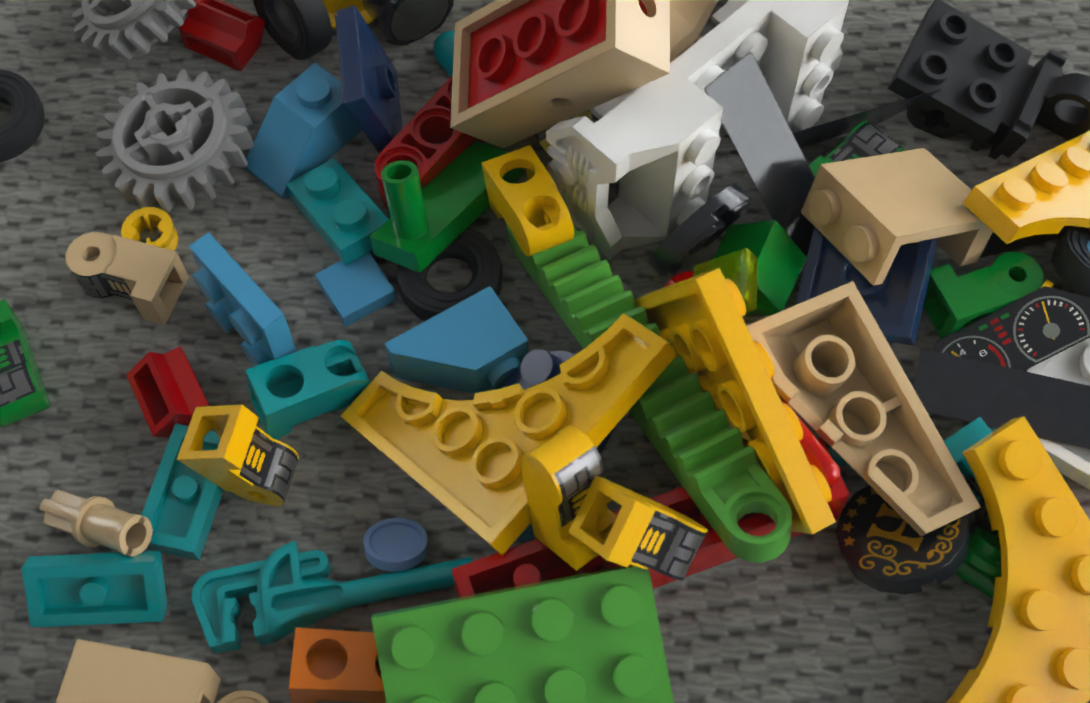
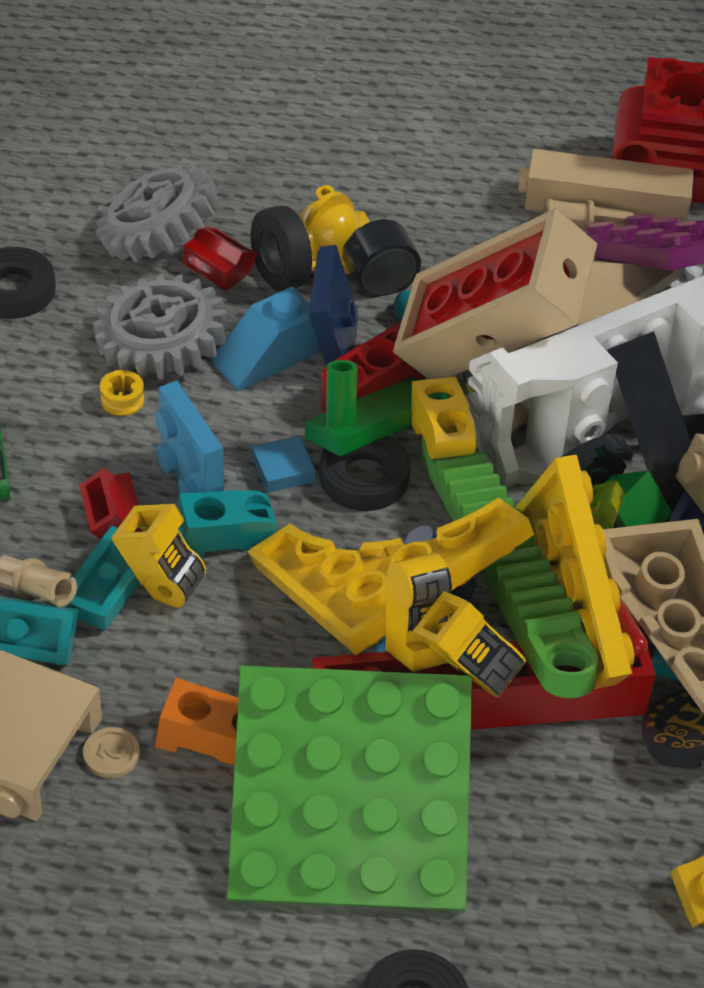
camera: 10 degrees right, 15 degrees down
(129, 269) = (99, 413): tan leg -> none
(294, 592) = (161, 662): teal piece -> none
(337, 209) = (281, 402): teal plate -> none
(395, 544) = (269, 650): medium blue piece -> none
(462, 347) = (358, 514): dark azure slope -> none

